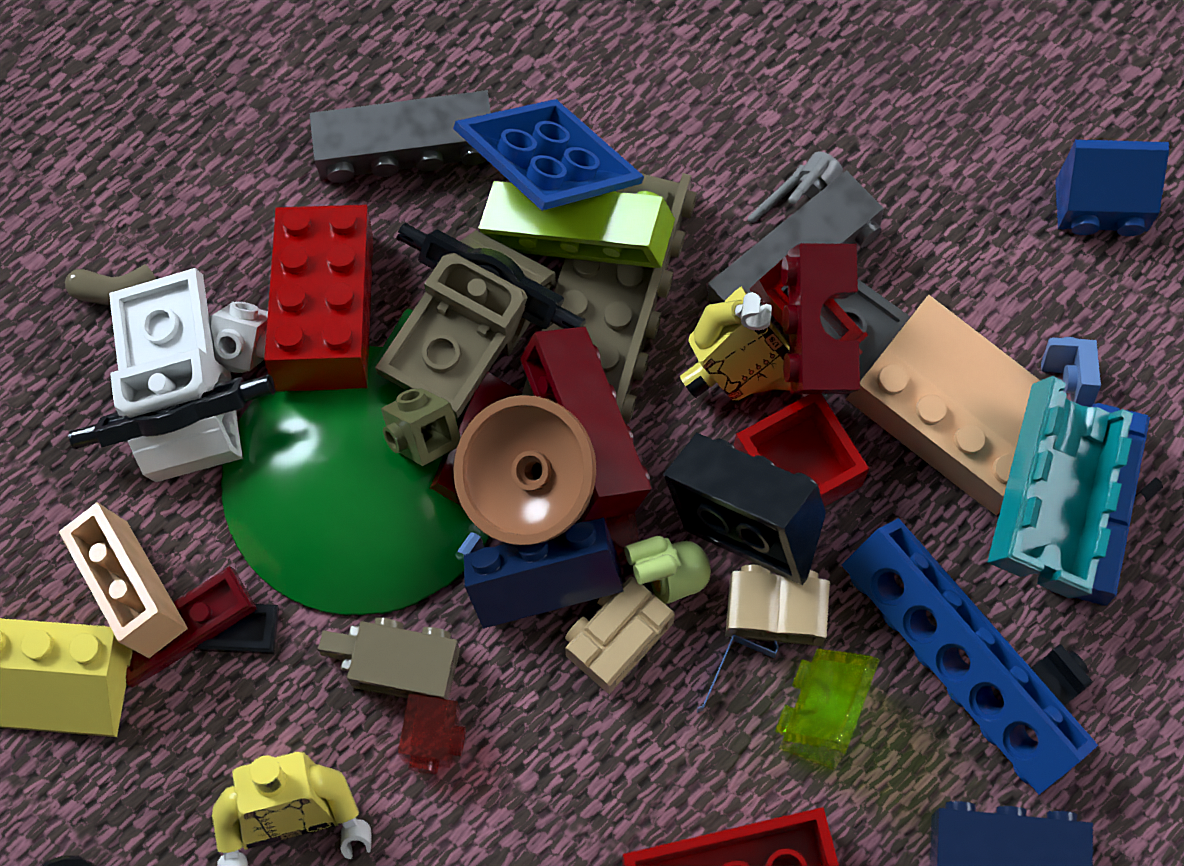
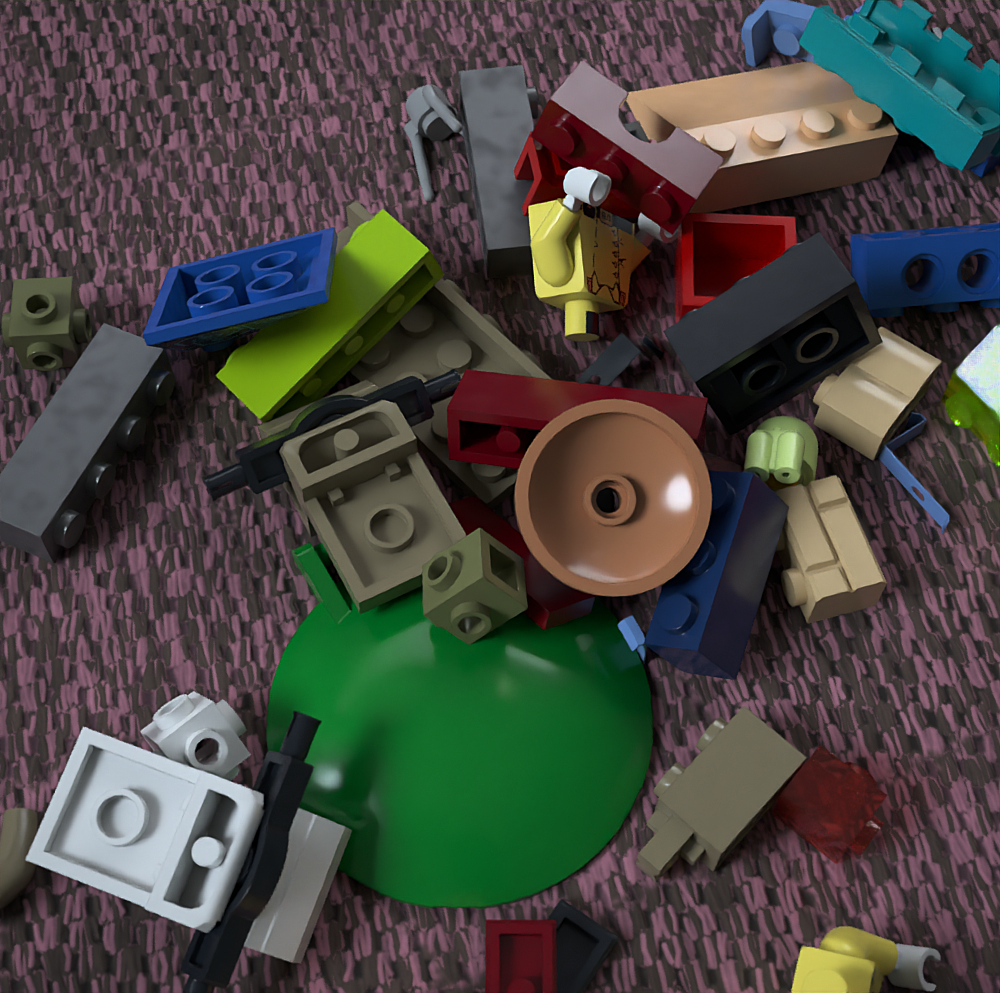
camera: 60 degrees left, 10 degrees down
(320, 298) = (219, 621): red brick -> none
(471, 57) = (46, 323): none -> olive brick
(680, 418) = (617, 358): none -> black piece

